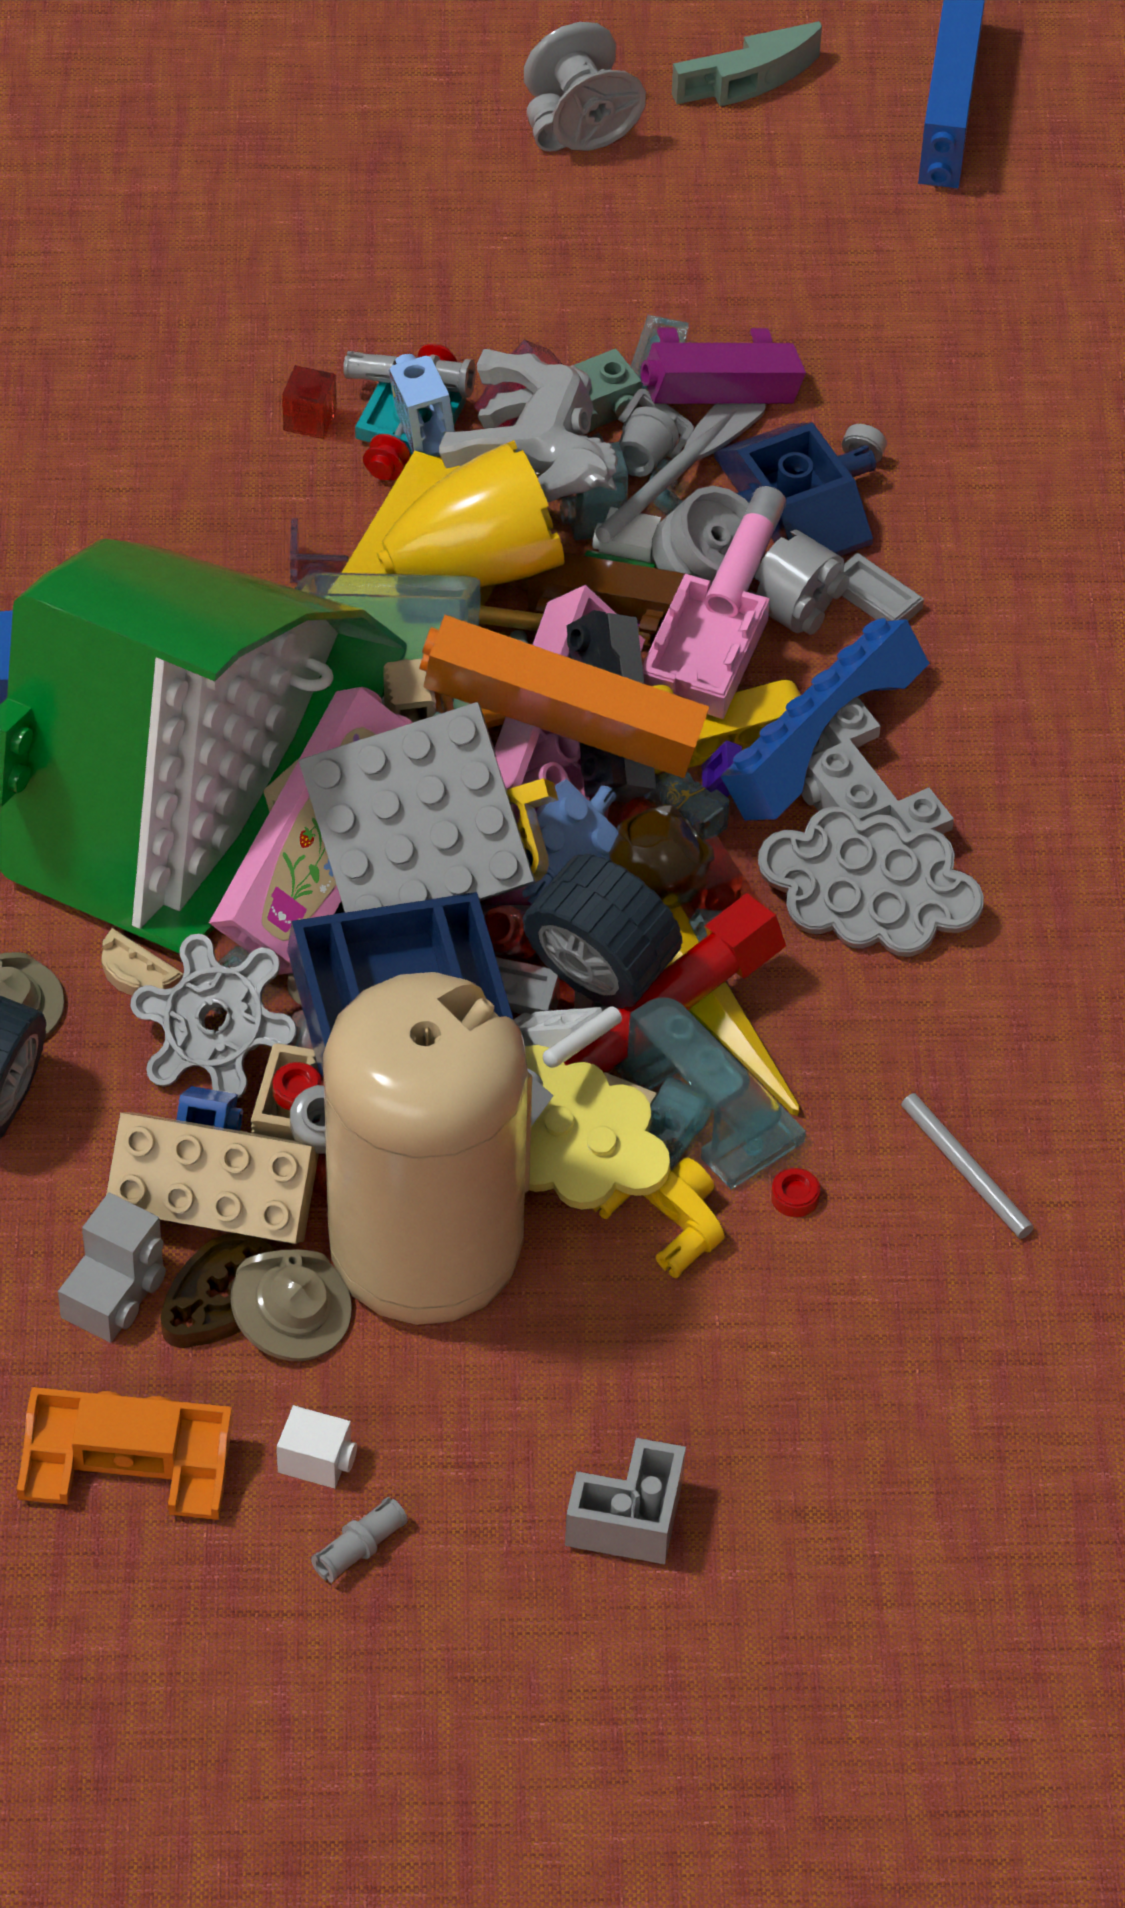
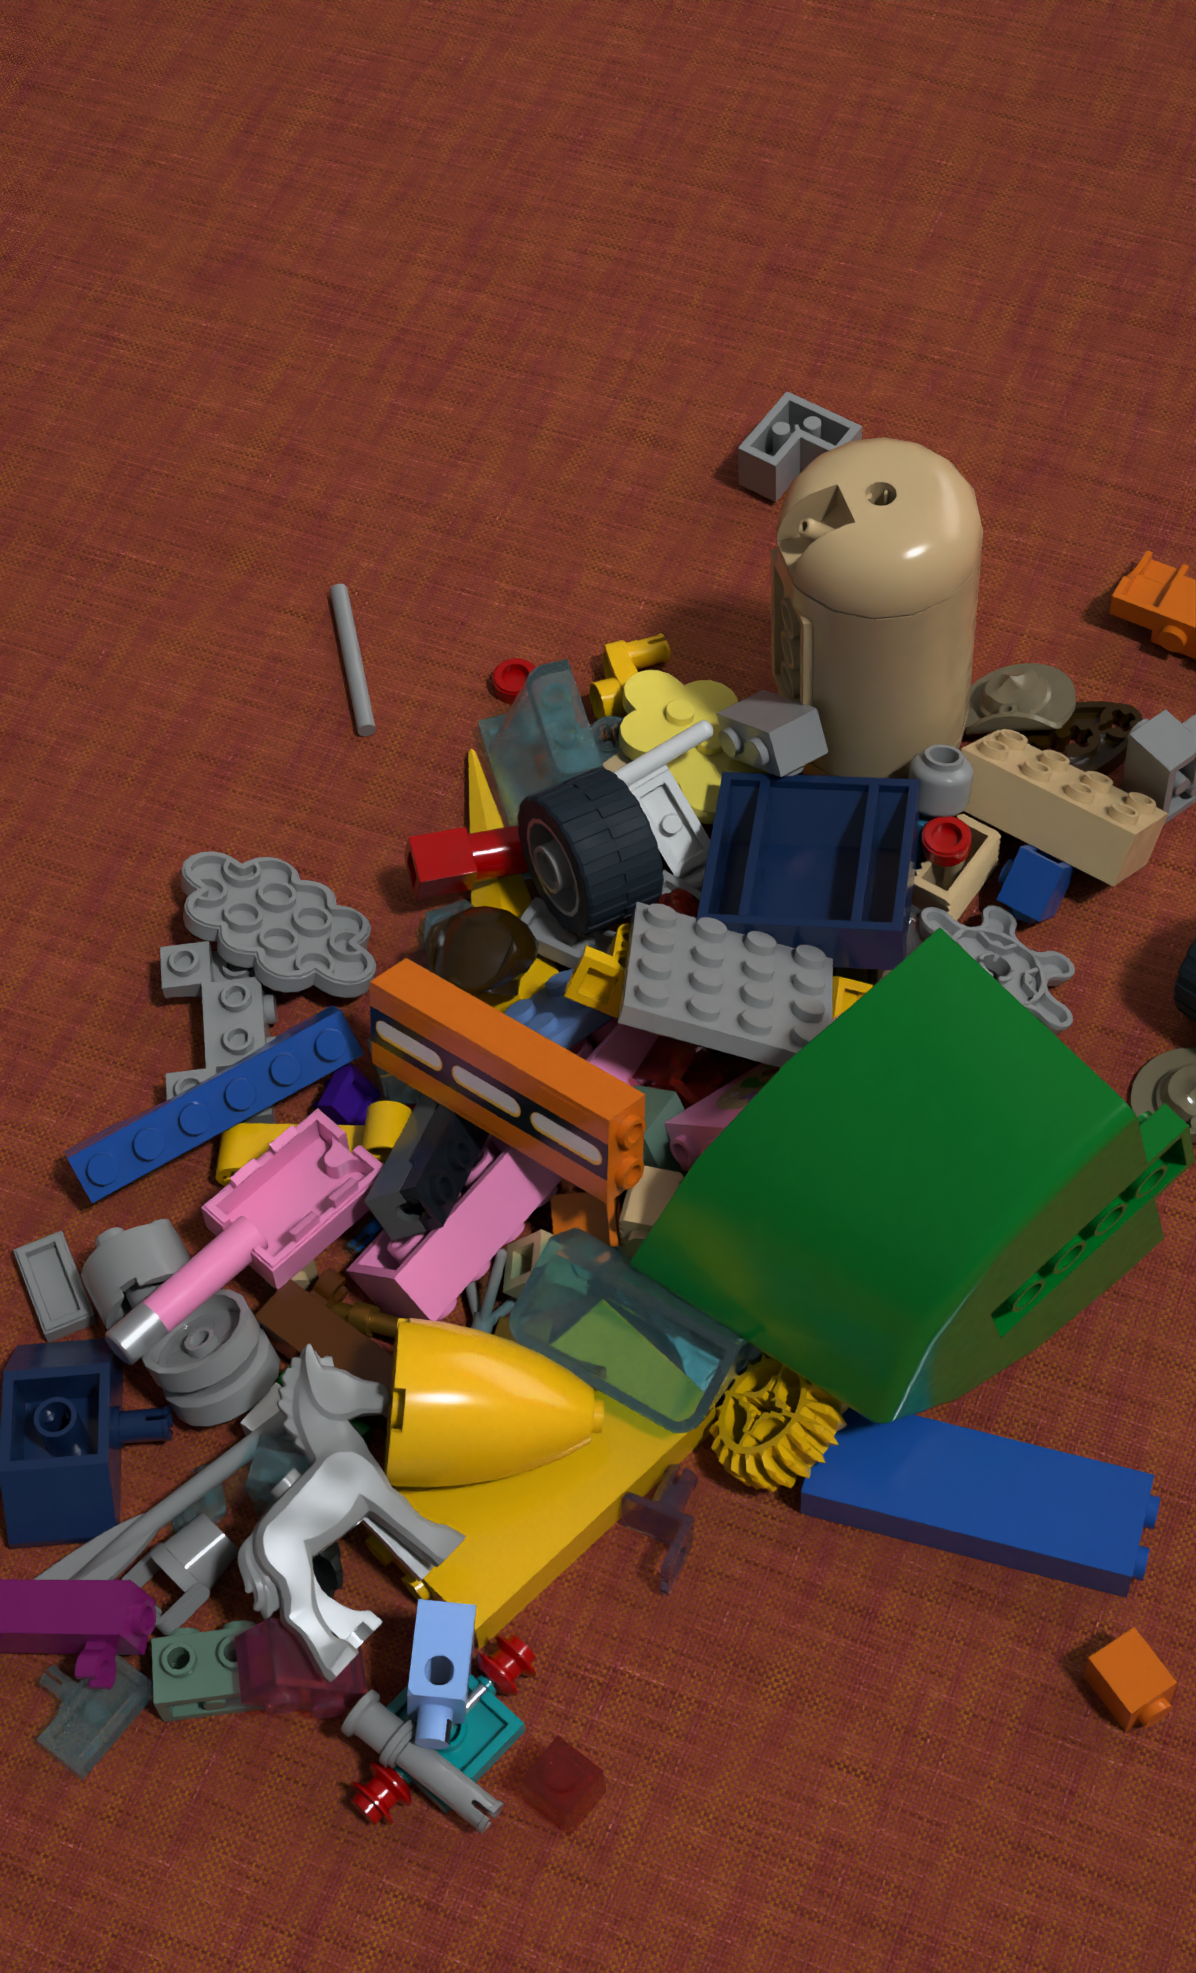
camera: 150 degrees left, 5 degrees up
(315, 1447) = (1043, 578): white brick -> none
(359, 1539) = (1032, 504): light grey pin -> none

